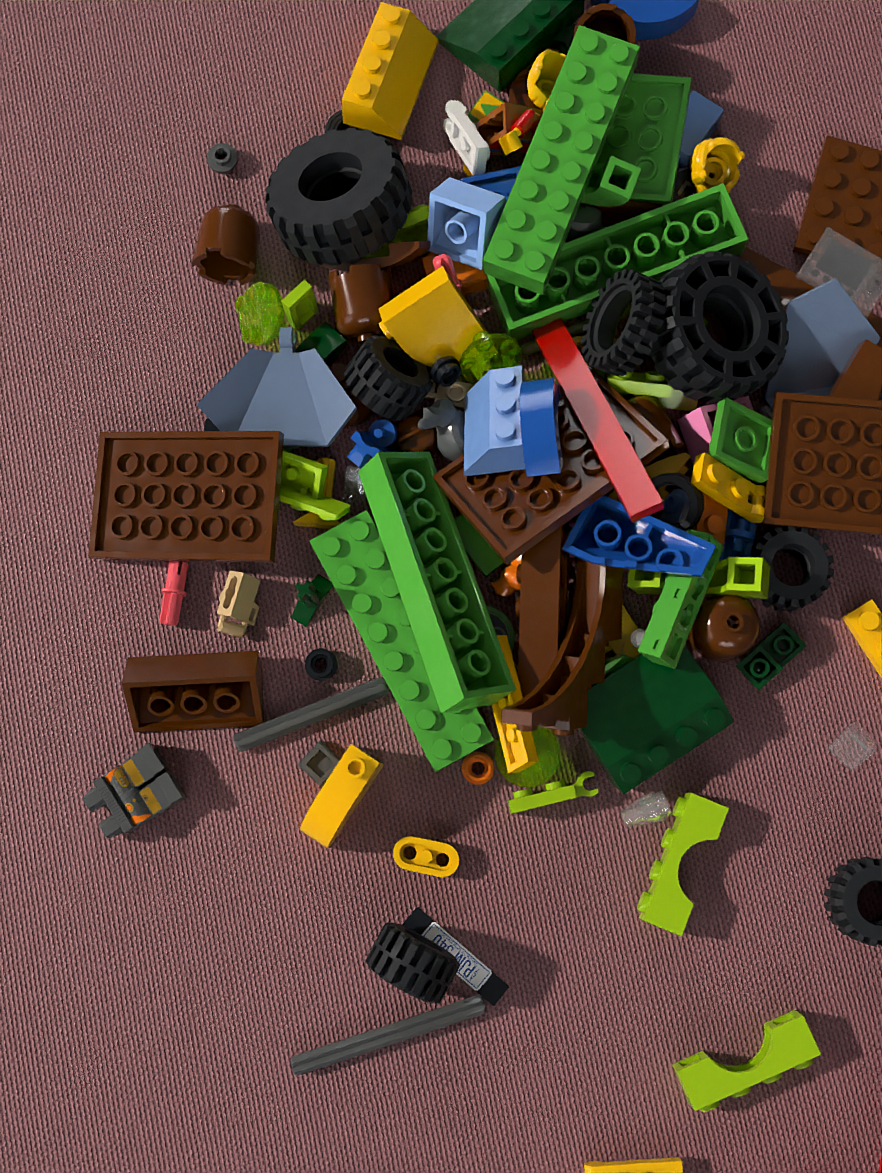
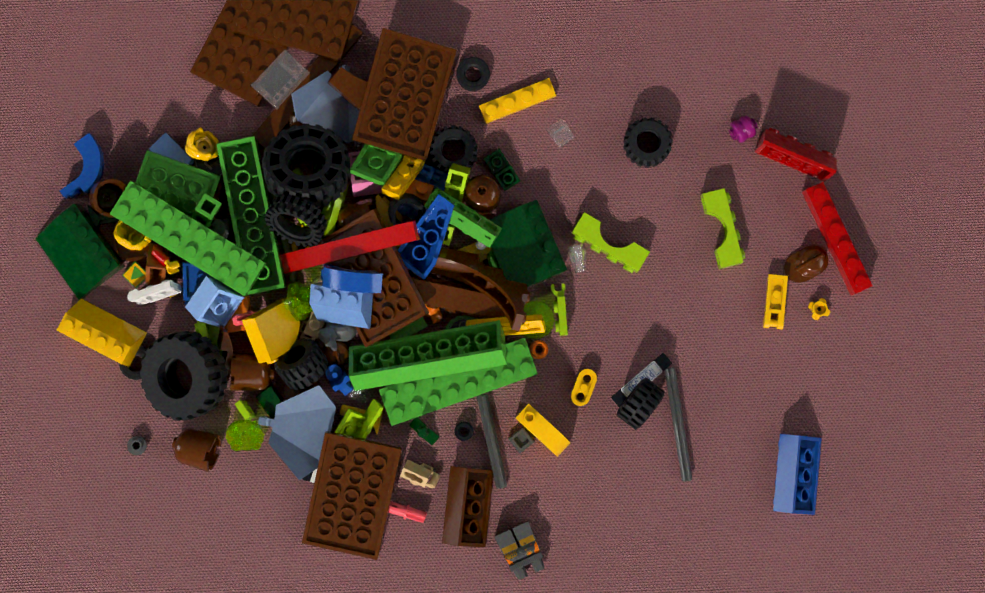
camera: 85 degrees left, 5 degrees up
(446, 371) = (302, 329): black plate -> none

